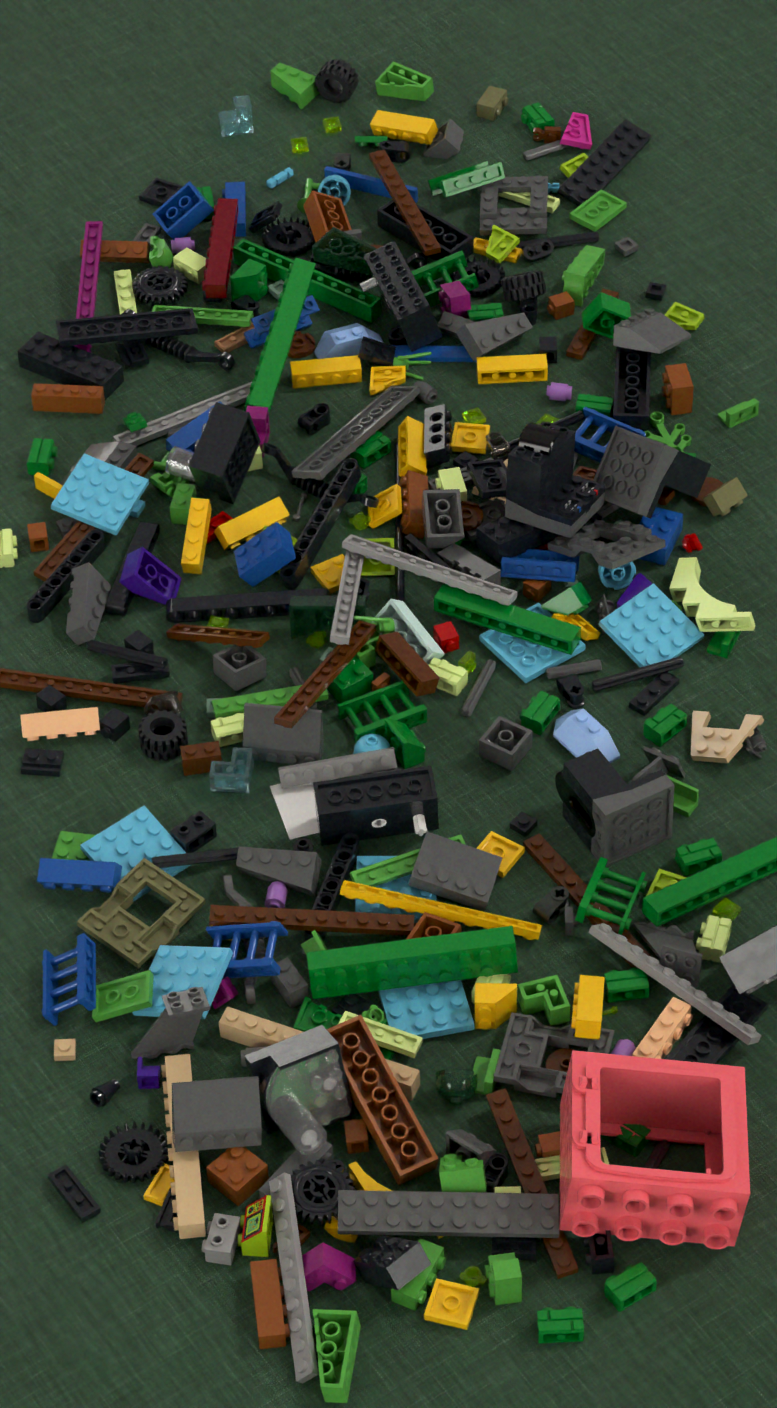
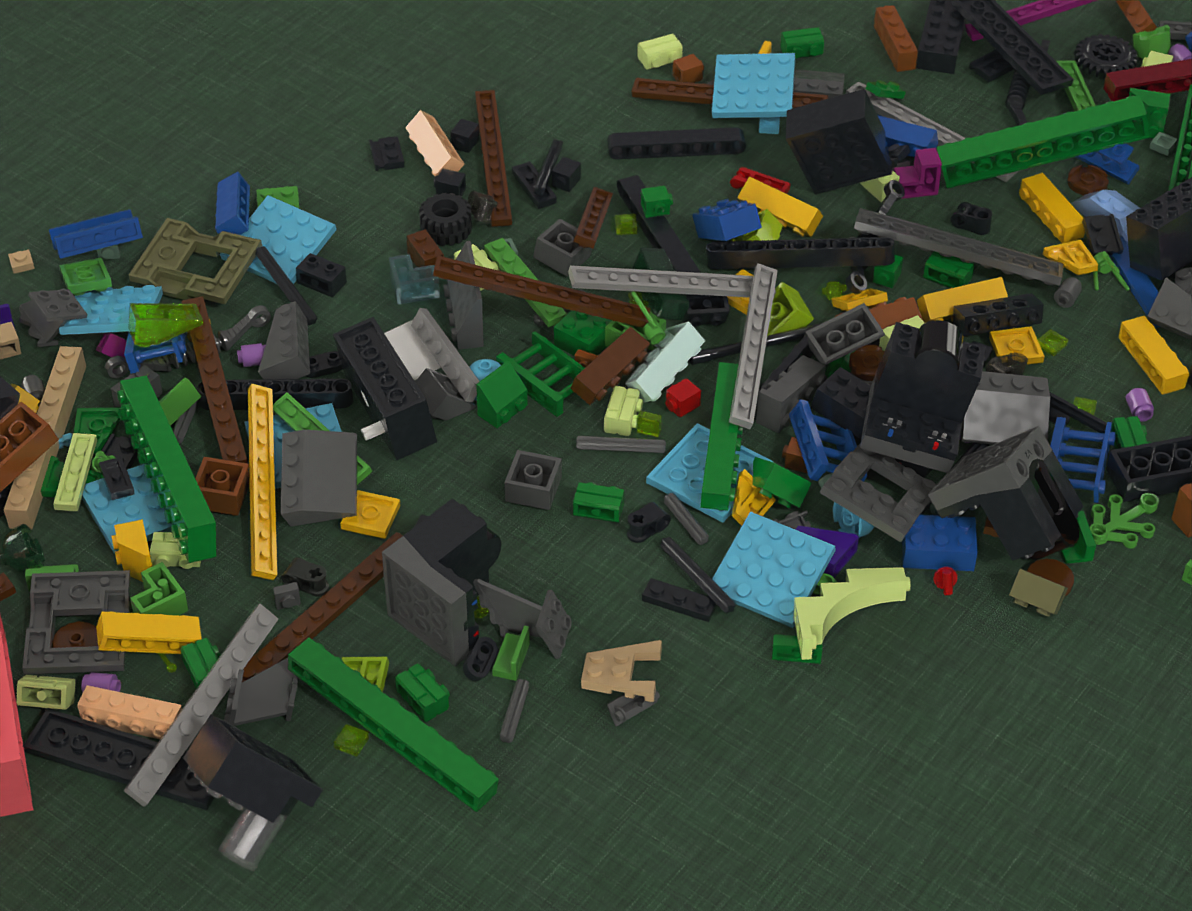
camera: 70 degrees right, 0 degrees up
(60, 580) = (642, 101): black beam -> none
(86, 603) = (601, 119): dark grey wedge -> none
(124, 290) = (1066, 45): yellowish green plate -> none
(149, 577) = (656, 153): dark purple slope -> none
(181, 503) = (779, 158): bright green brick -> none
(196, 536) = (731, 167): yellow brick -> none
(220, 591) = (656, 201): none -> green brick
(246, 930) = (157, 323): none -> clear neon green slope
(403, 1004) = (116, 478): none -> black plate
(583, 733) = (574, 550): light blue wedge -> none
(596, 884) = (330, 598): green fence -> none
(664, 724) = (624, 617): green brick -> none
(683, 820) = (478, 660): none -> black plate
(714, 938) = (297, 733): yellowish green brick -> none
(730, 809) = (514, 711): none -> dark grey axle

